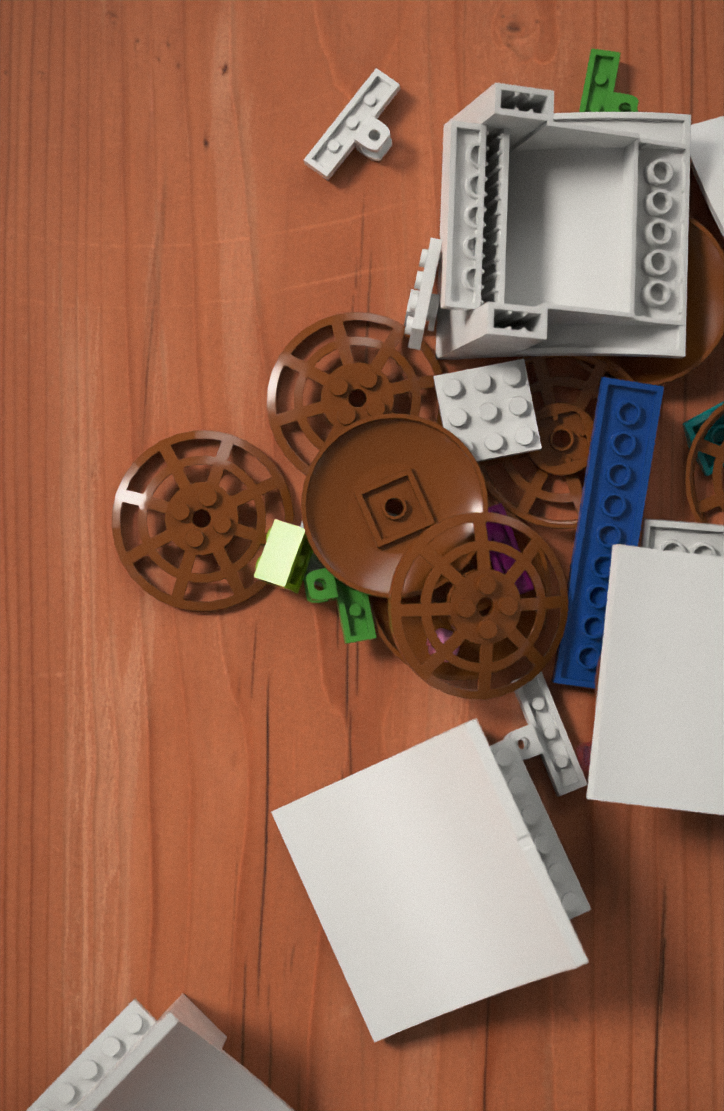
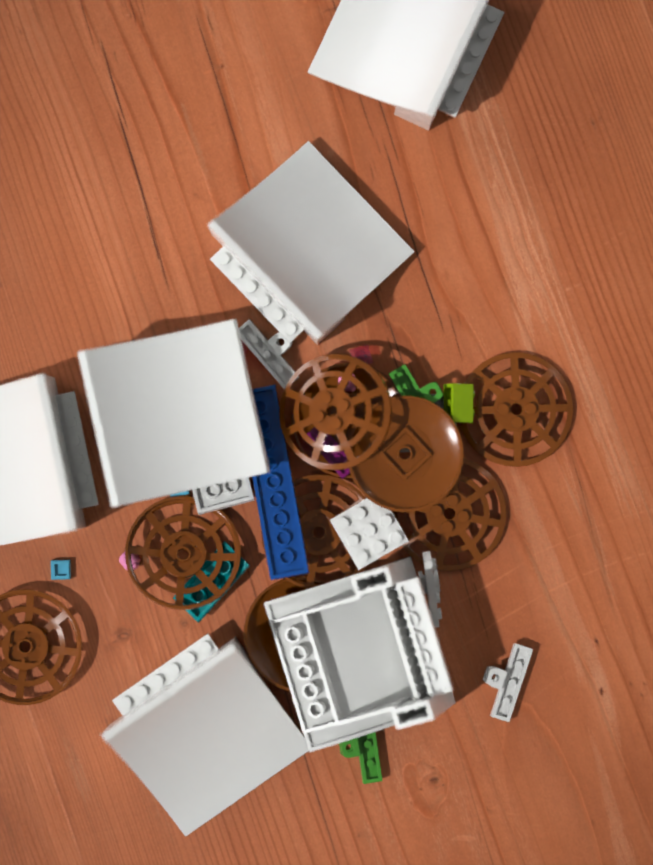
camera: 160 degrees right, 5 degrees up
(405, 682) = (362, 353): none -> clear pink plate

